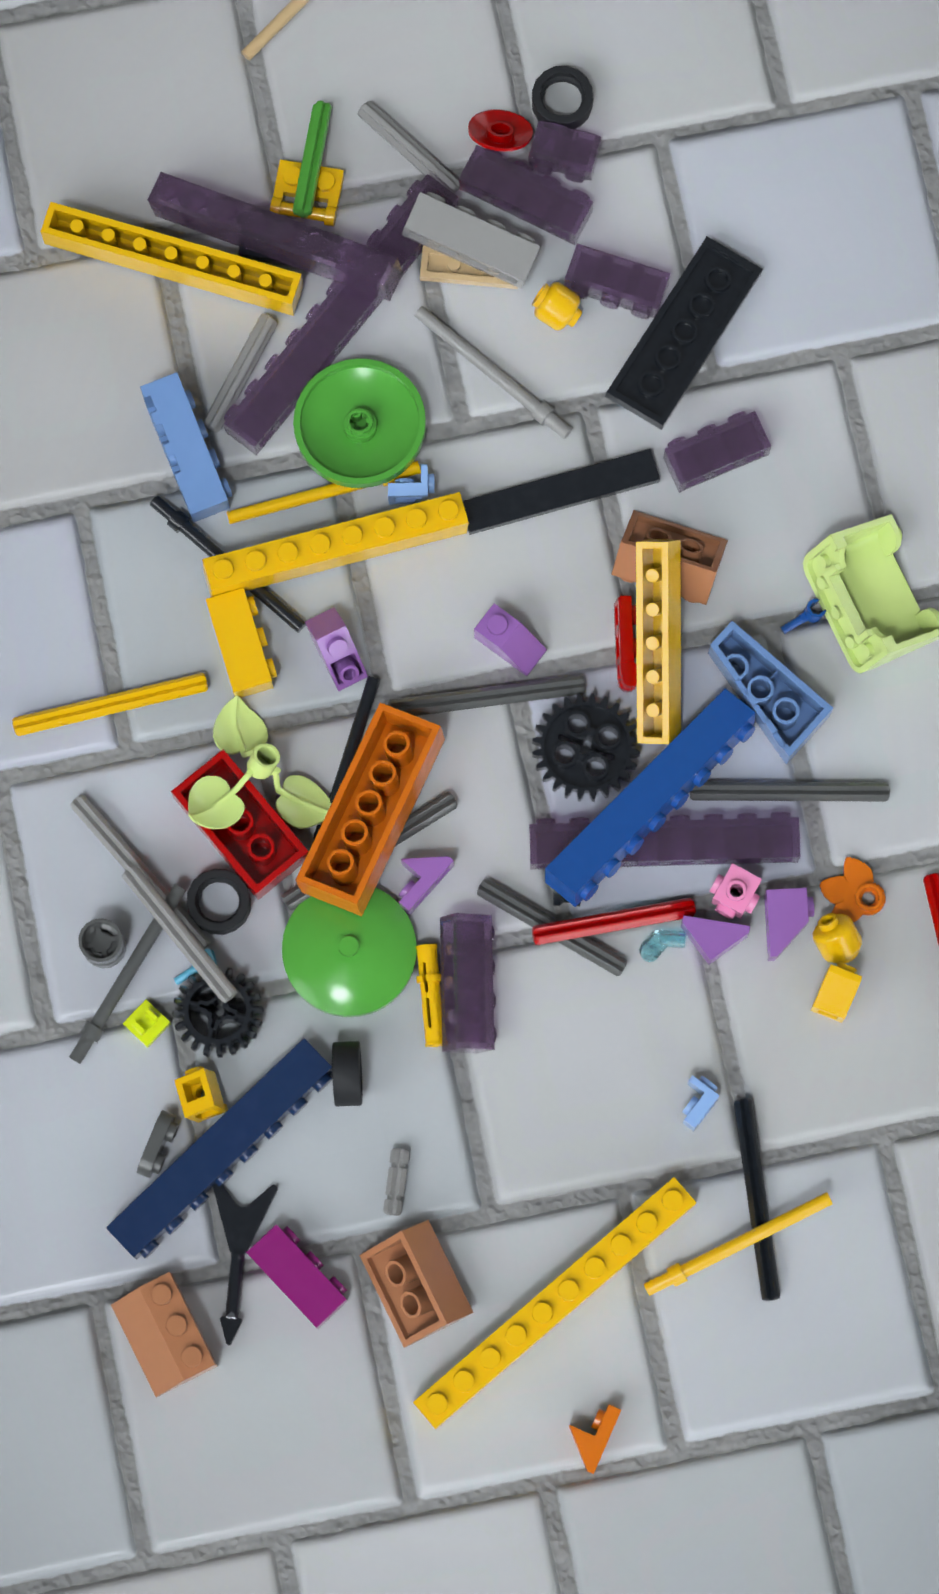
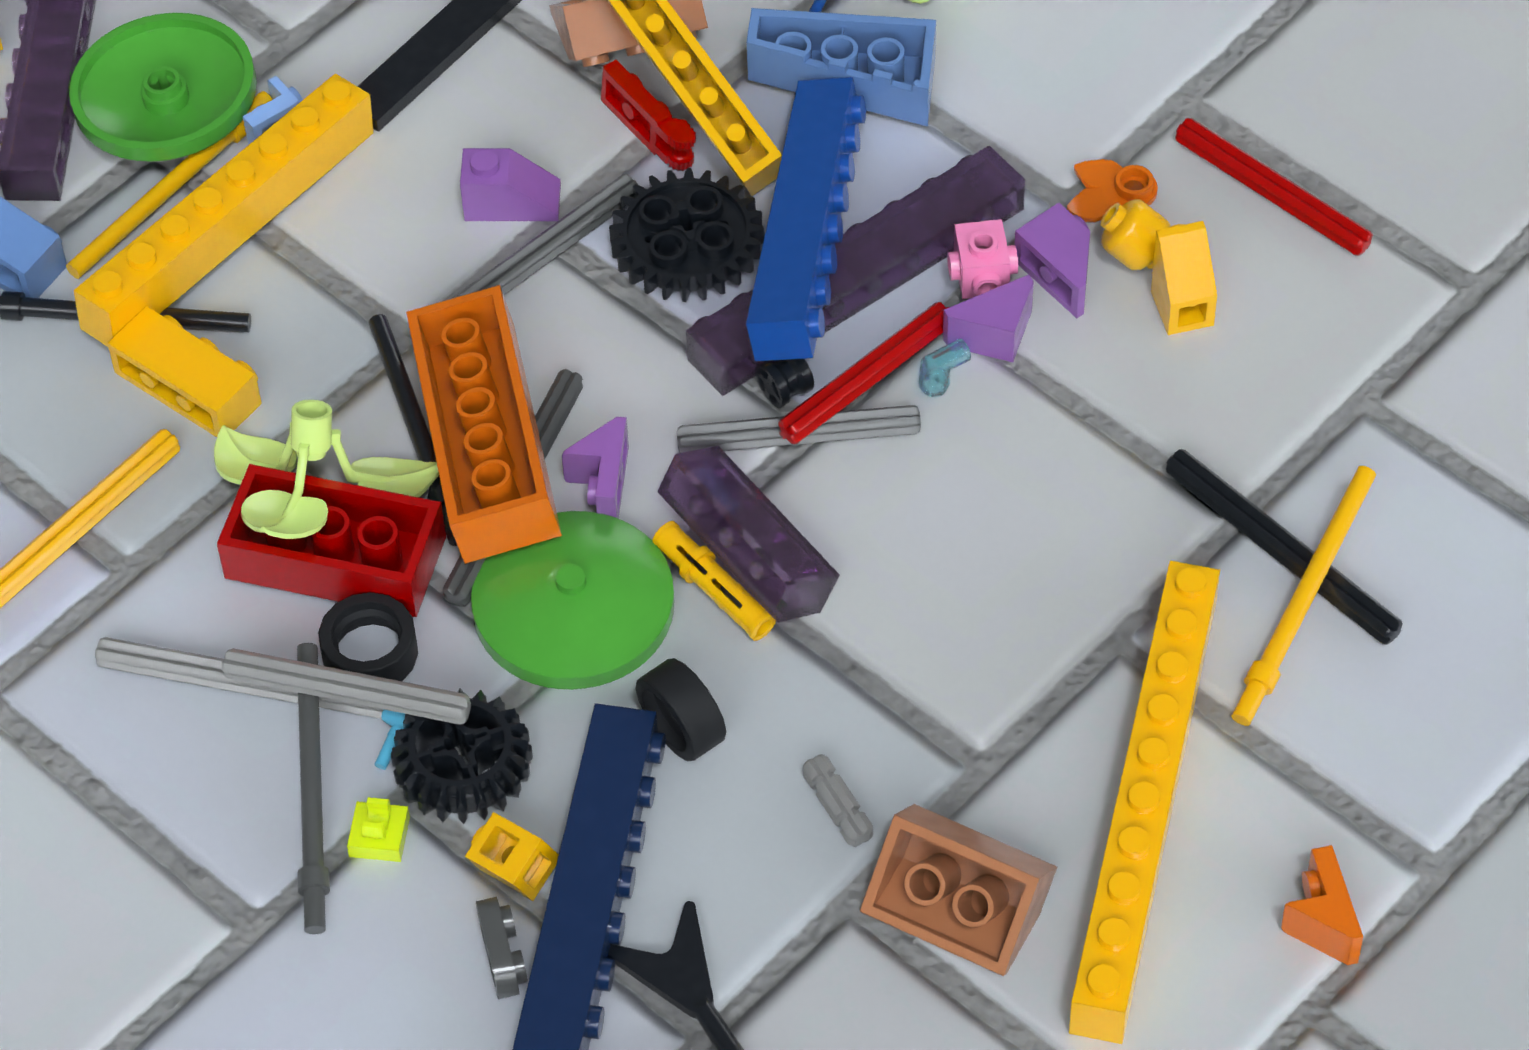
camera: 35 degrees left, 25 degrees down
(102, 943) = (252, 769): dark grey wheel -> none
(298, 1275) = (802, 976): magenta brick -> none
(336, 648) = (308, 310): medium lavender slope -> none
(699, 1108) = (1128, 477): light blue bracket -> none
(791, 791) = (956, 145): dark grey axle -> none

